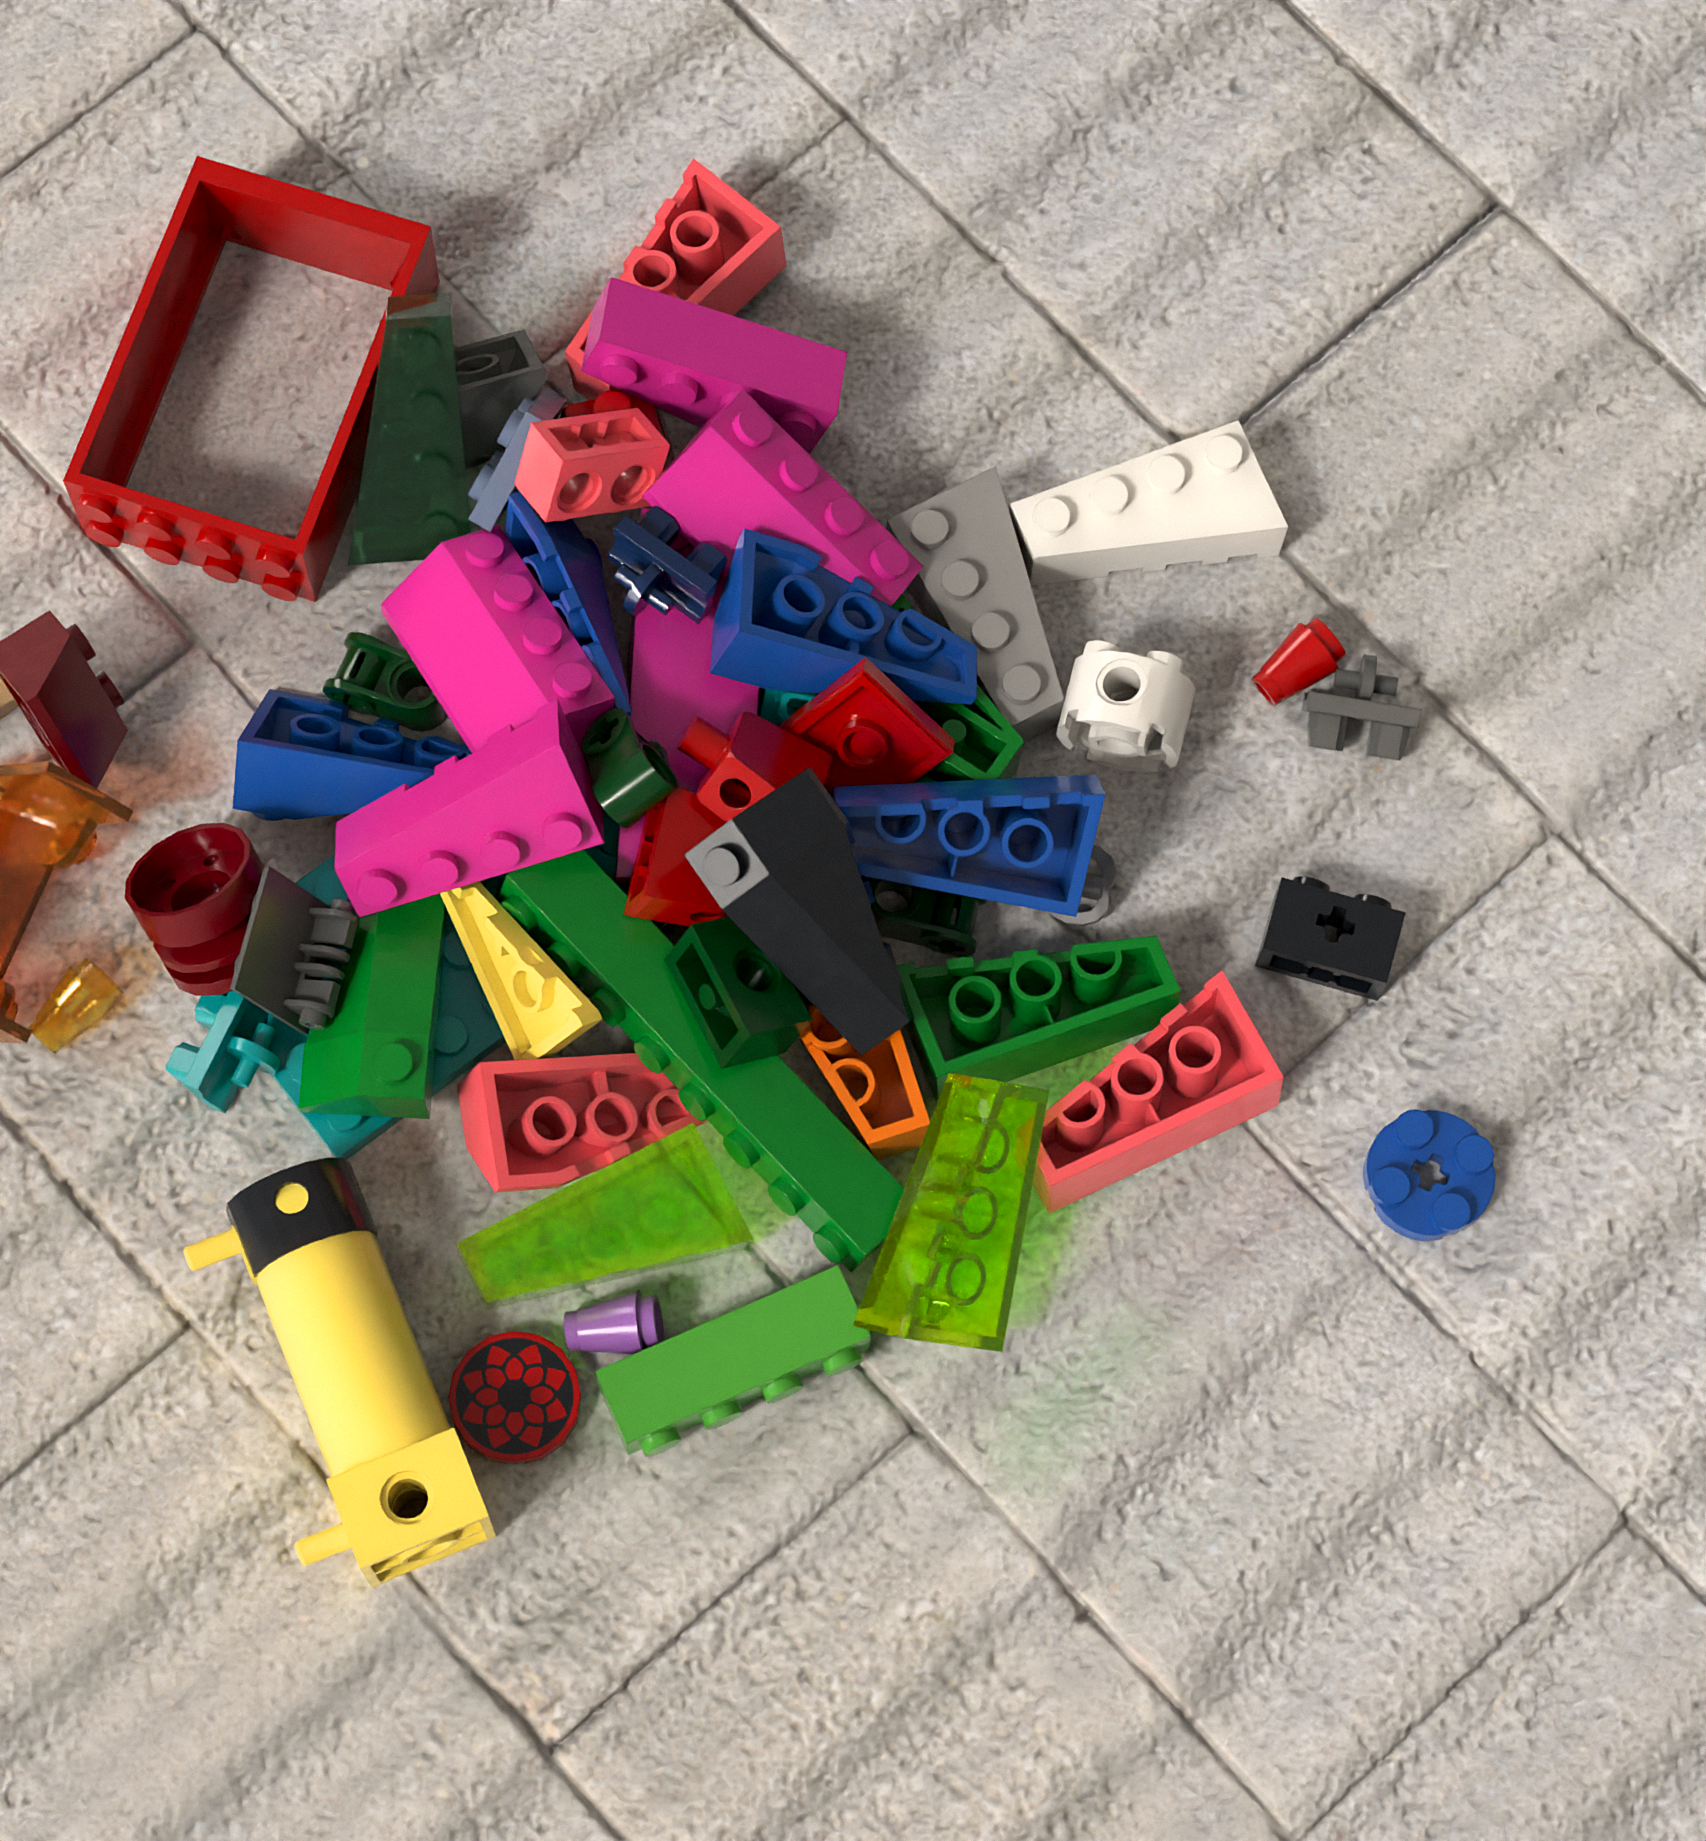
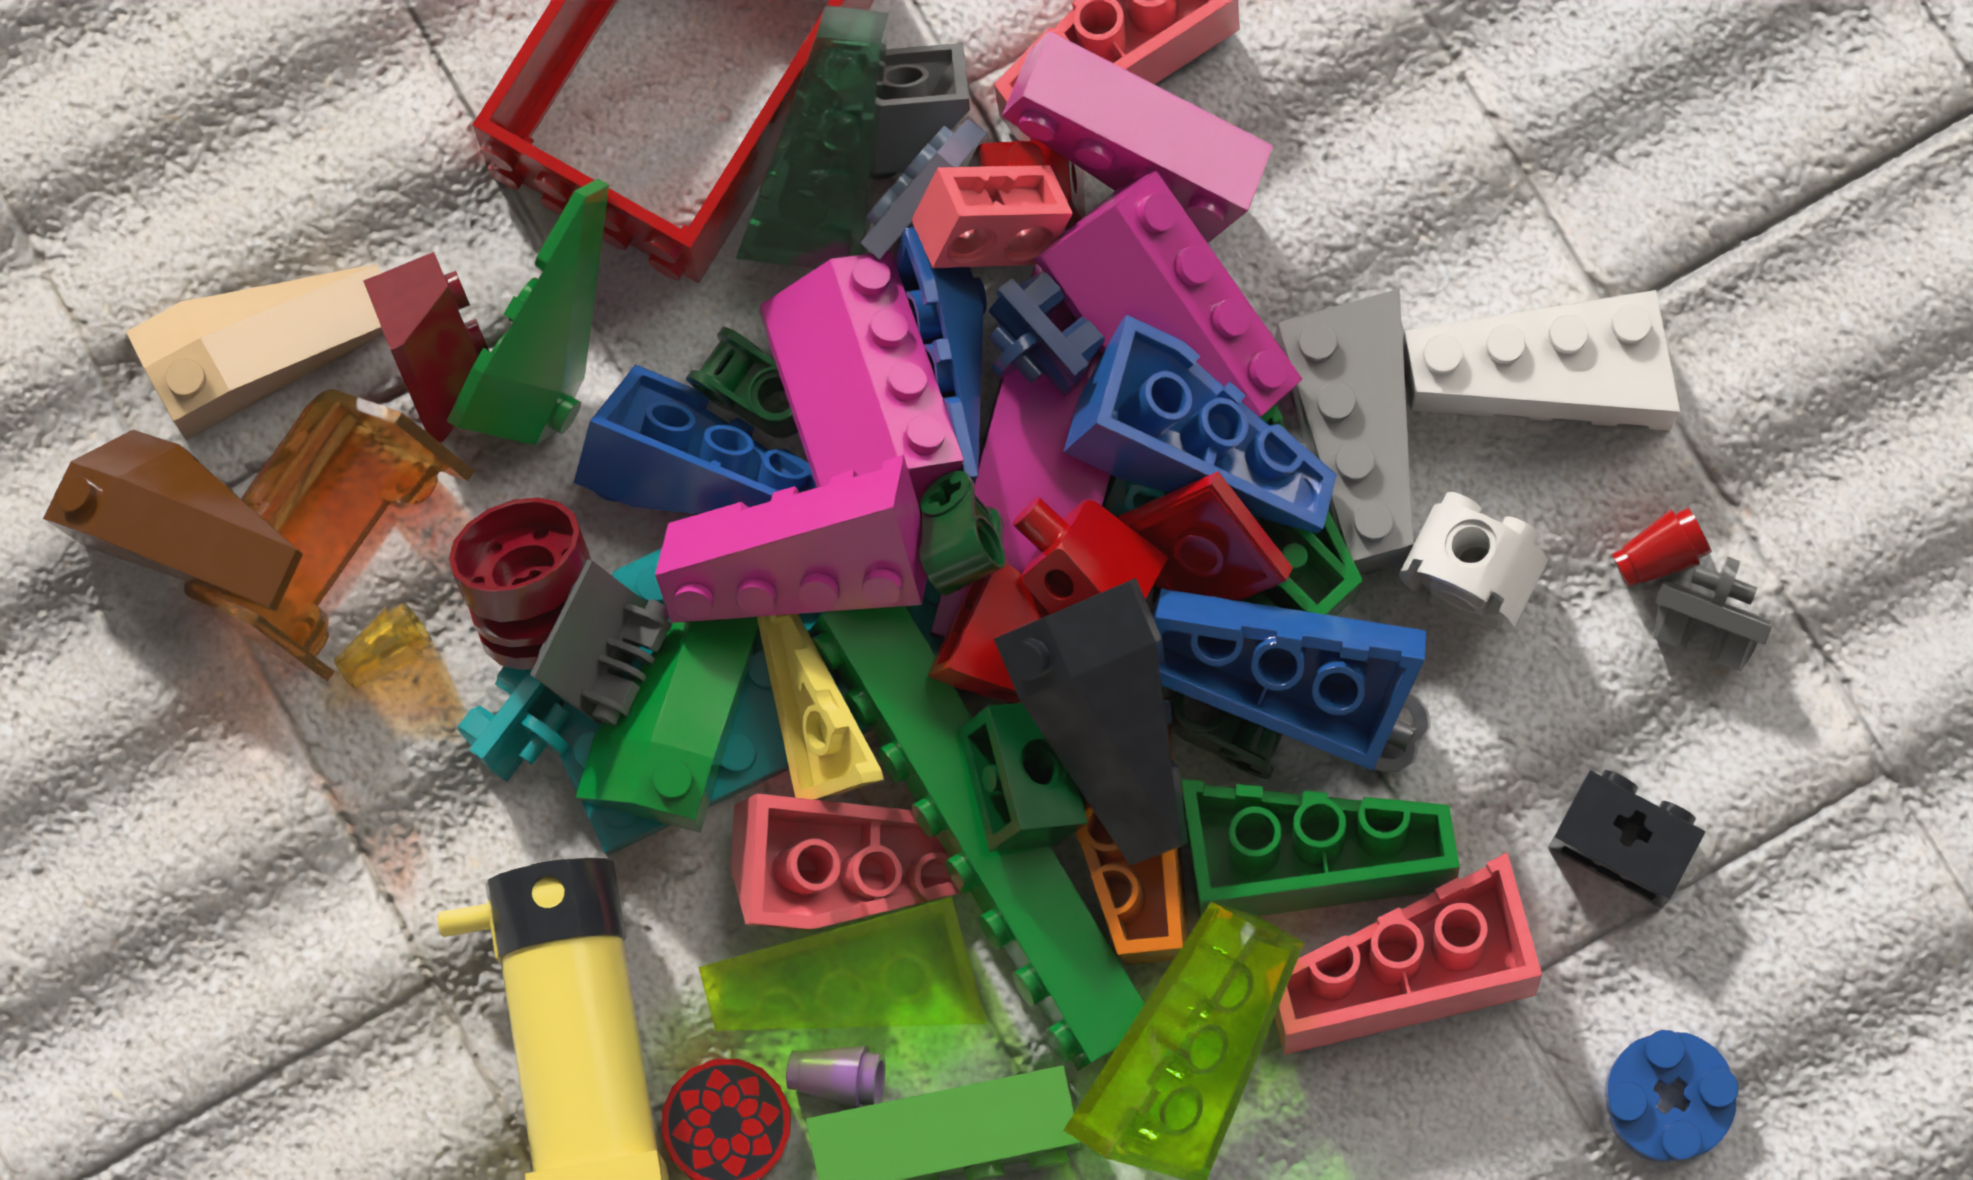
camera: 20 degrees right, 5 degrees up
(174, 701) = (537, 367): none -> green wedge

